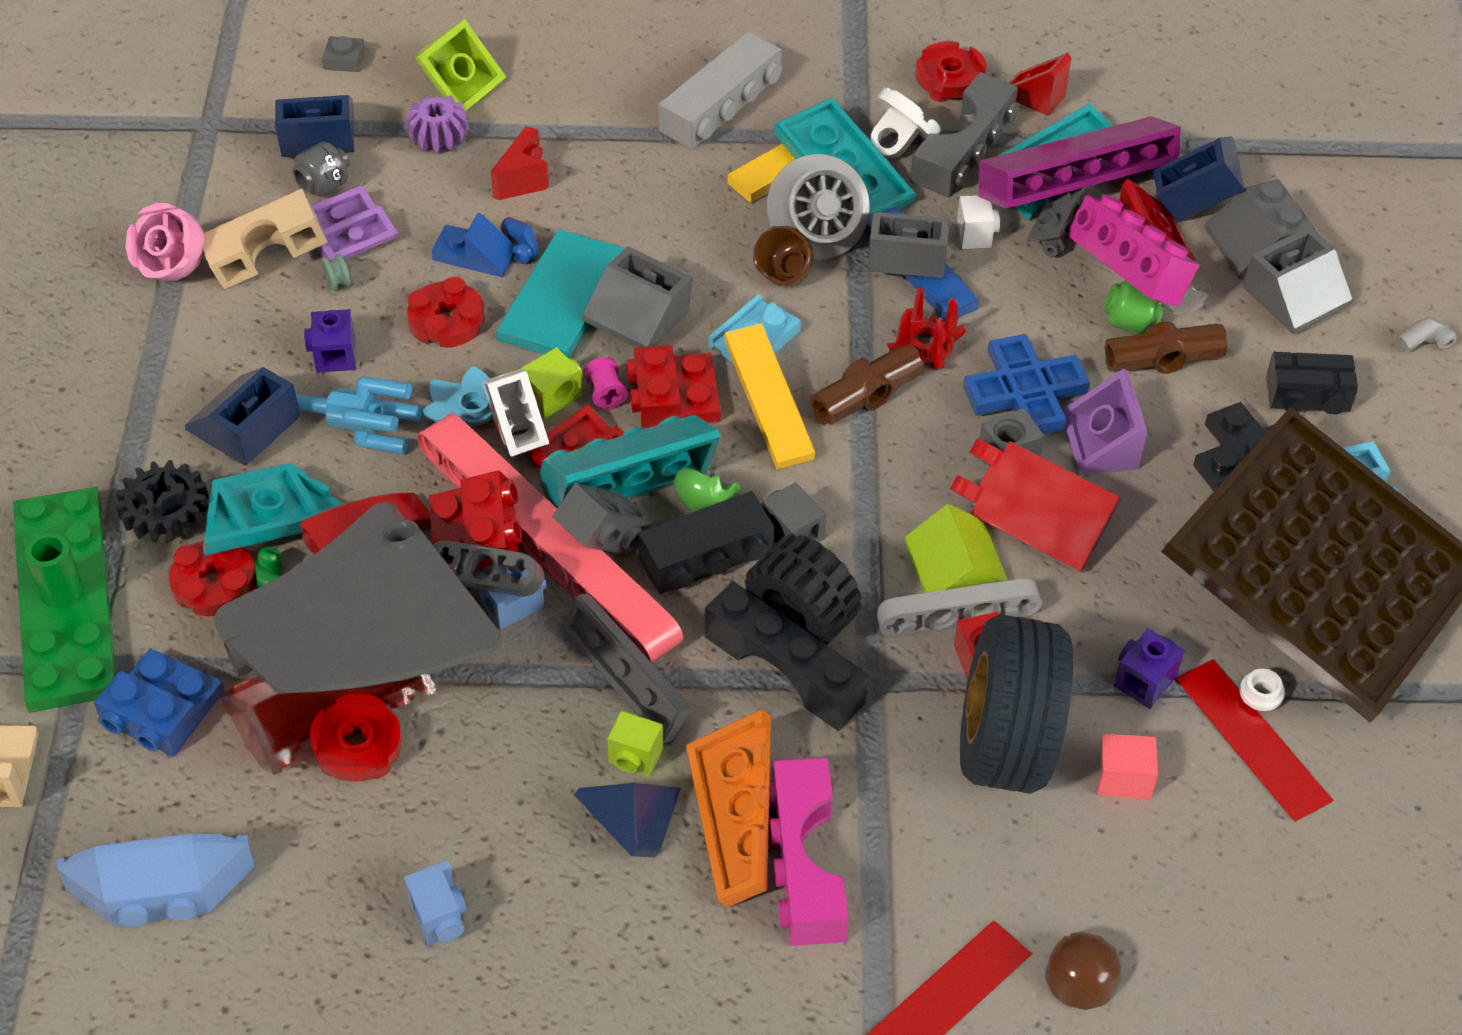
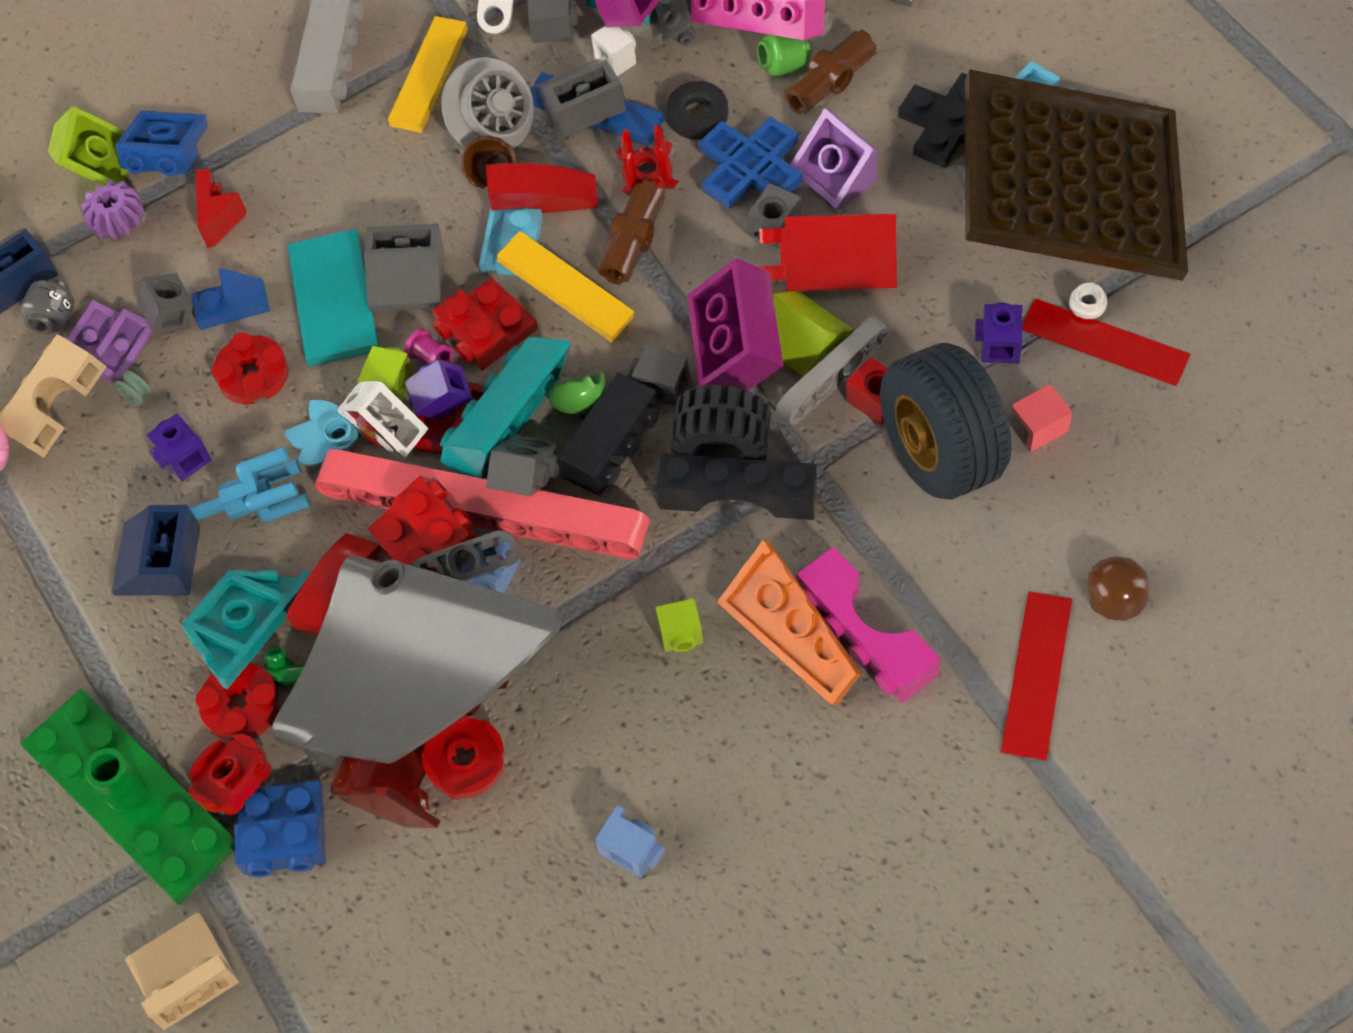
camera: 25 degrees left, 10 degrees up
(151, 627) = (228, 793): none -> red plate
(157, 876) = (401, 969): medium blue wedge -> none
(165, 498) = (128, 669): black gear -> none
(416, 219) = (165, 303): none -> dark grey brick
(520, 91) = (161, 142): none -> blue plate
(527, 245) = (262, 264): blue arm -> none
(581, 414) = (438, 389): none -> dark purple brick
(625, 666) = (624, 569): dark grey tile -> none
(632, 813) = (718, 680): dark blue slope -> none
(813, 300) = (540, 187): none -> red slope
(832, 132) = (445, 42): teal tile -> none
(889, 513) = (735, 327): none -> magenta brick
(1013, 297) = (692, 93): none -> black tyre
(1311, 382) = (954, 39): black brick -> none

